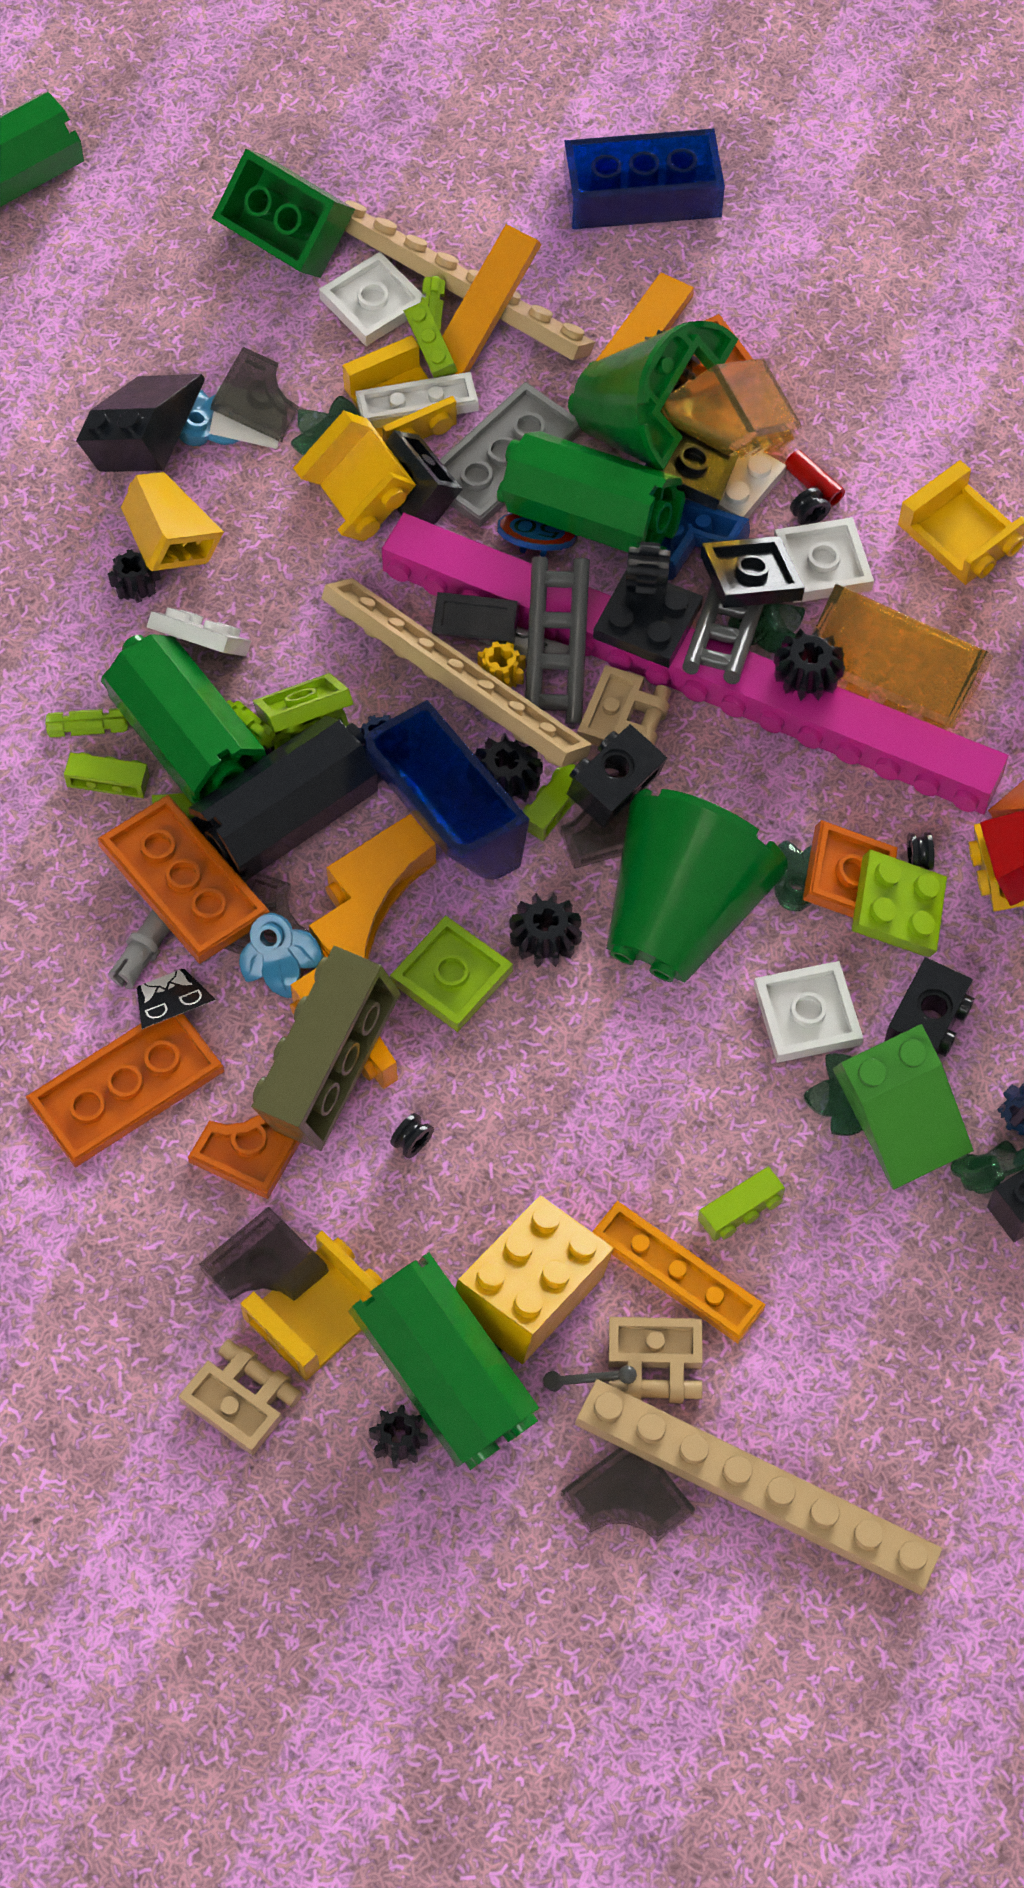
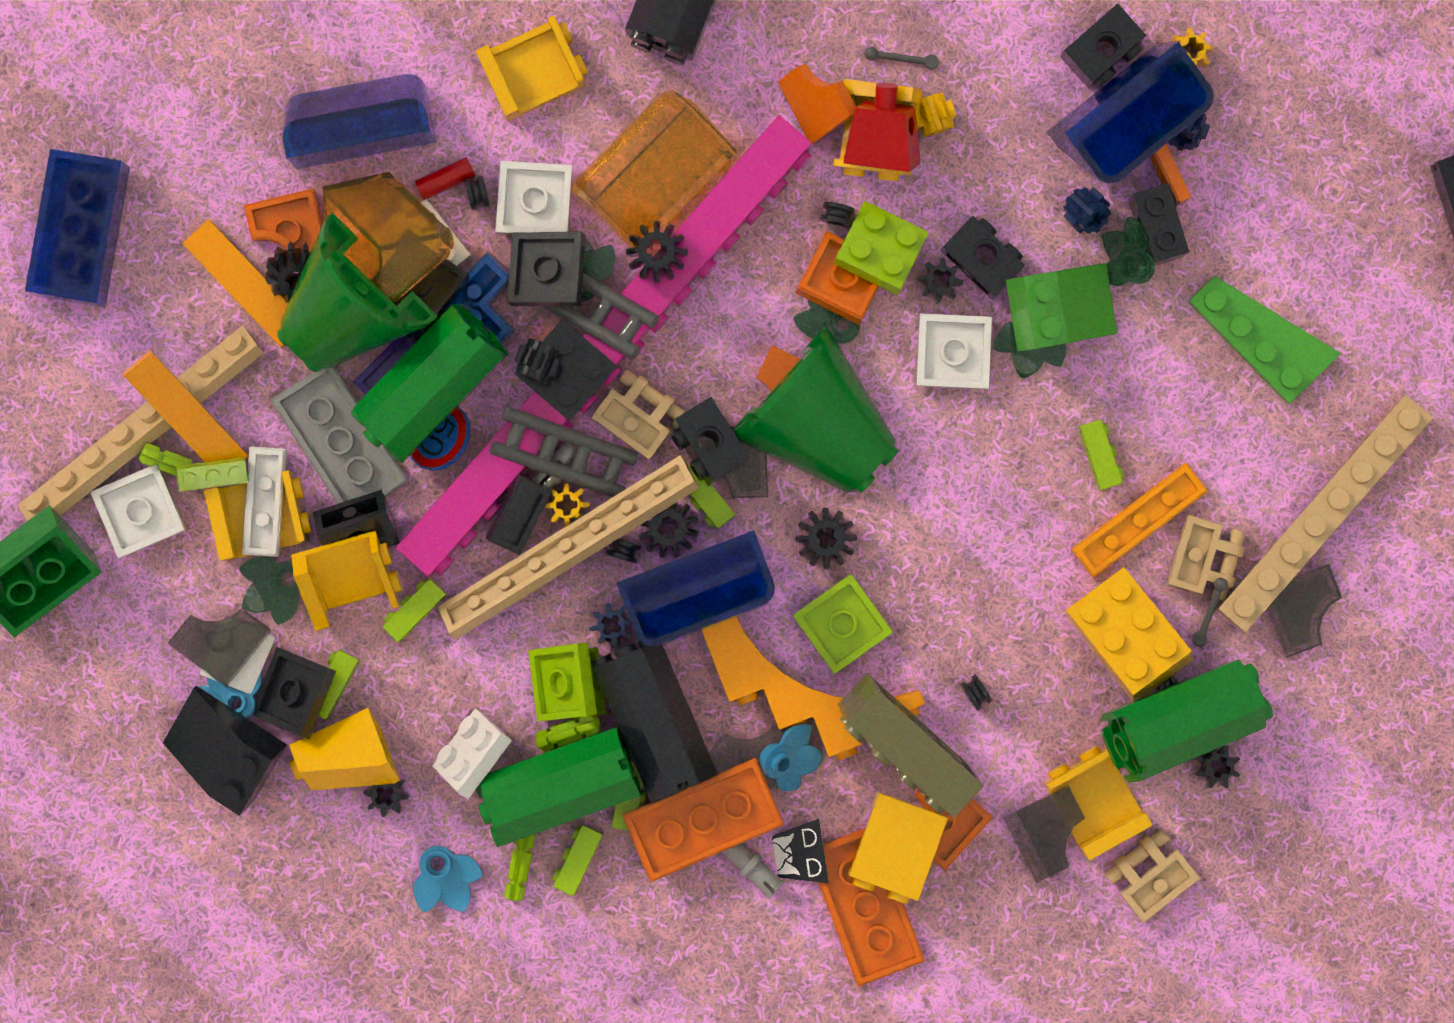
camera: 75 degrees left, 25 degrees up
(50, 659) = (448, 884): none -> dark azure plate
(201, 1081) = (897, 848): none -> yellow panel
(220, 464) = (293, 692): none -> black plate
(241, 504) = (345, 666): none -> lime piece
(342, 557) = (414, 609): none -> lime piece
(469, 731) = (624, 550): none -> black bush
(839, 382) = (357, 121): none -> clear blue windscreen
(876, 966) = (940, 271): none -> black gear
(947, 1365) = (1270, 344): none -> bright green wing

